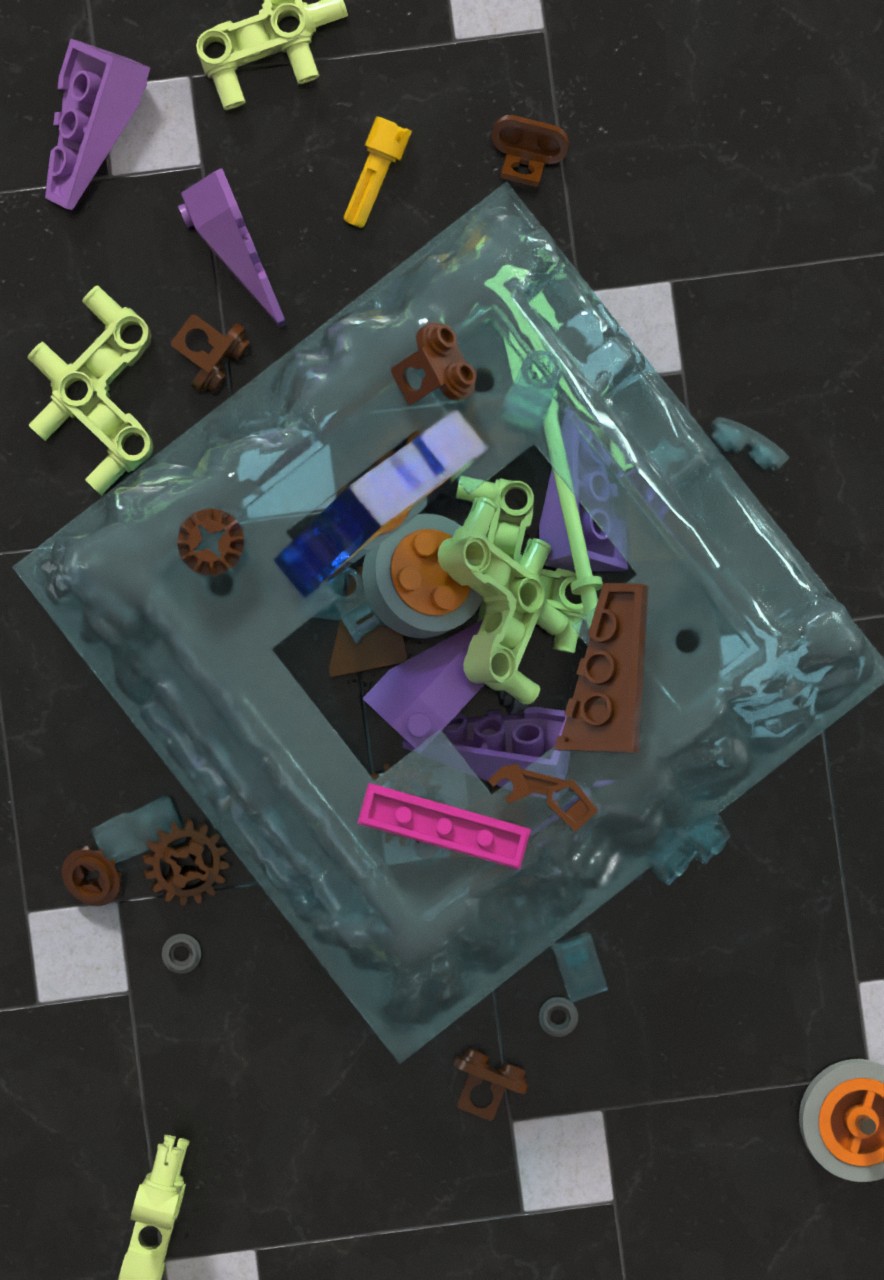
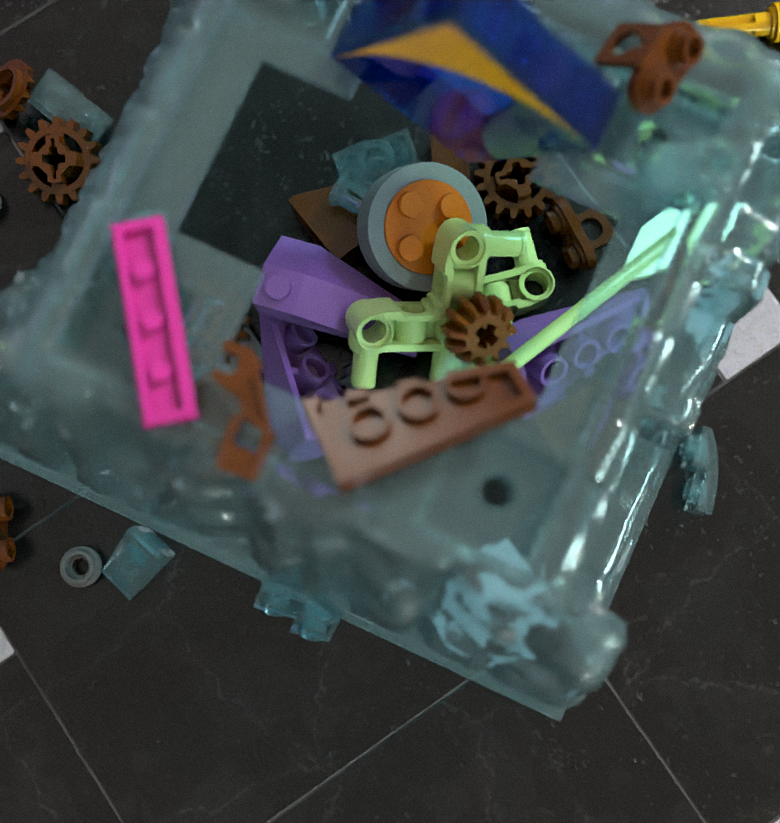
camera: 65 degrees right, 5 degrees down
(541, 577) = (478, 328): none -> dark orange gear

